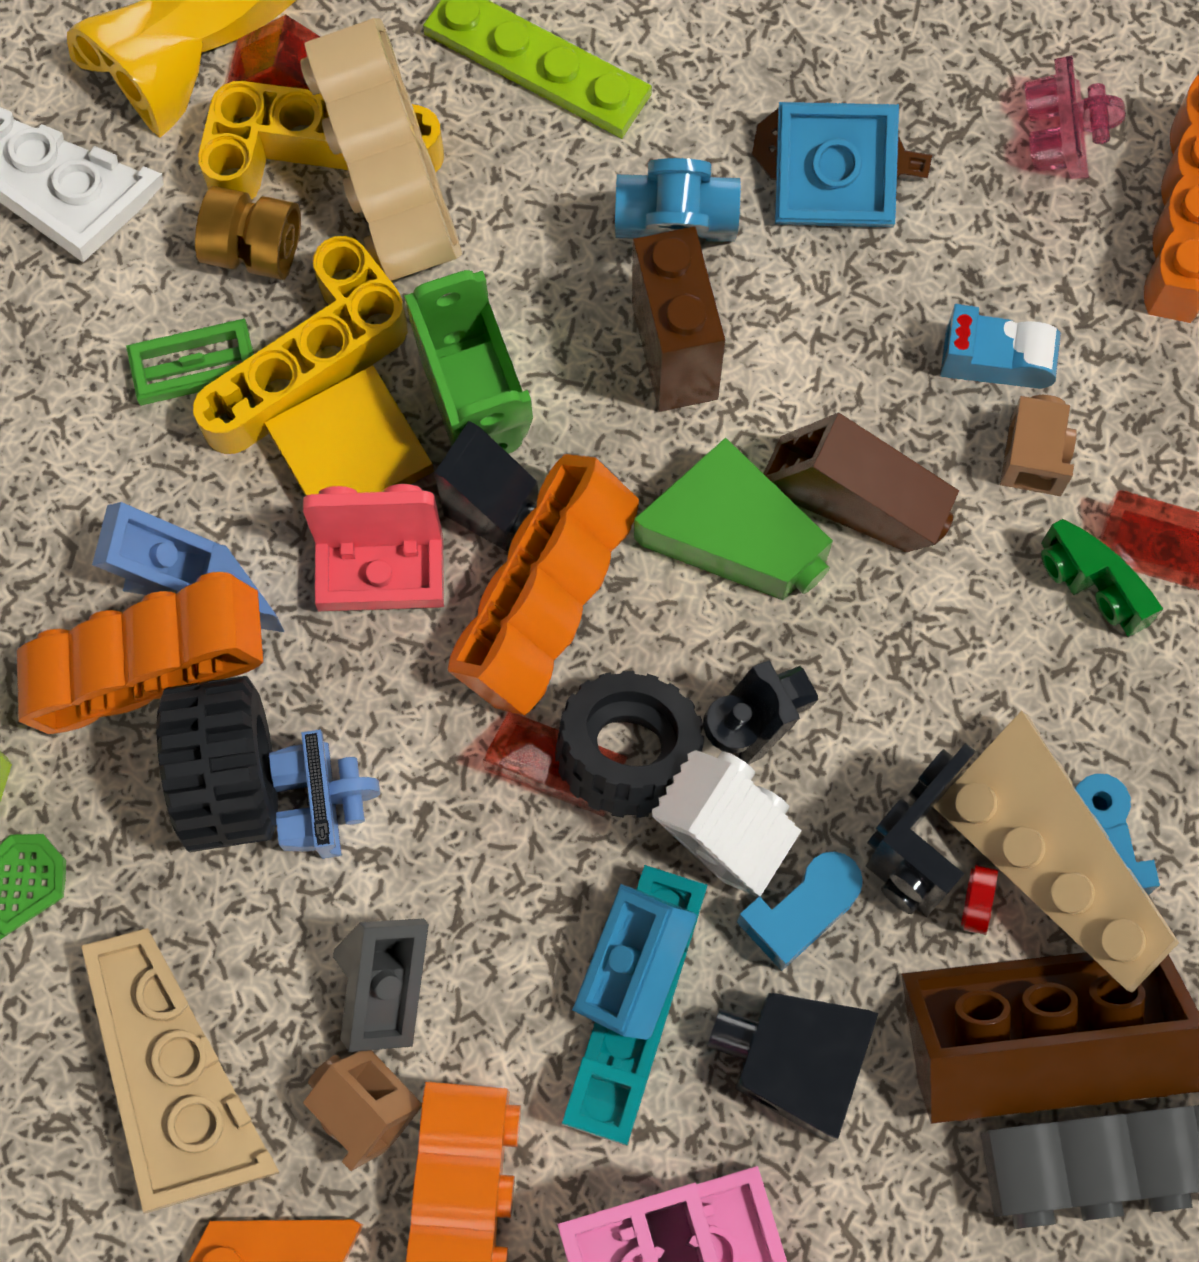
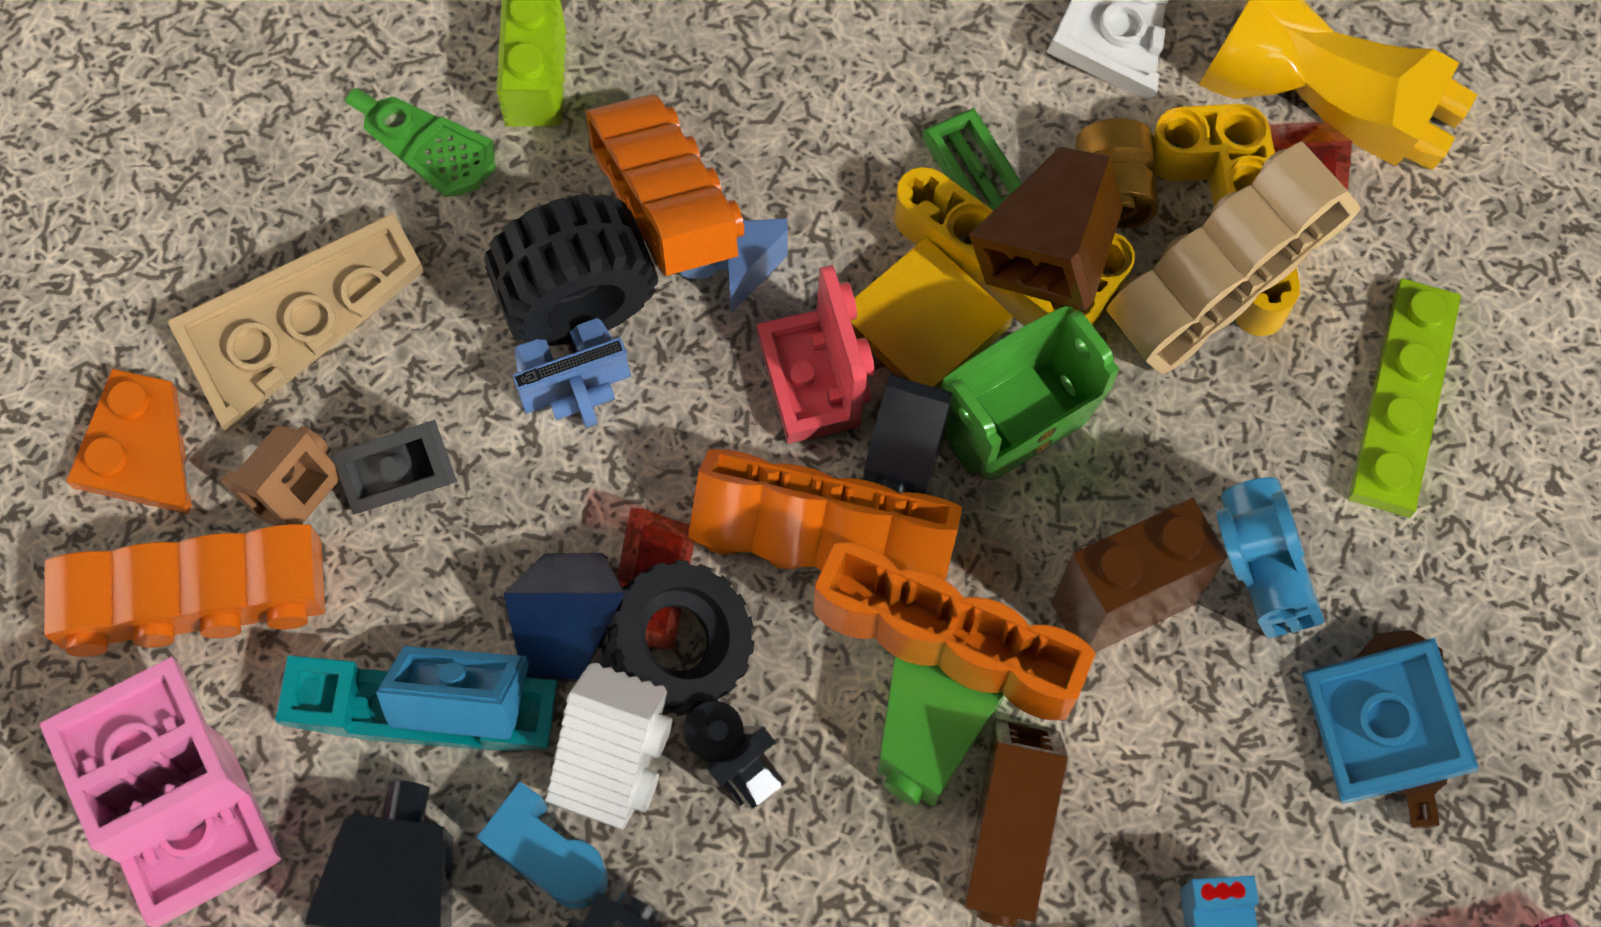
camera: 75 degrees right, 5 degrees down
(149, 551) = (770, 172): medium blue slope -> none
(318, 292) = (1053, 230): none -> reddish brown slope
(574, 840) = (562, 612): none -> dark blue slope
(688, 490) = (969, 638): none -> orange brick

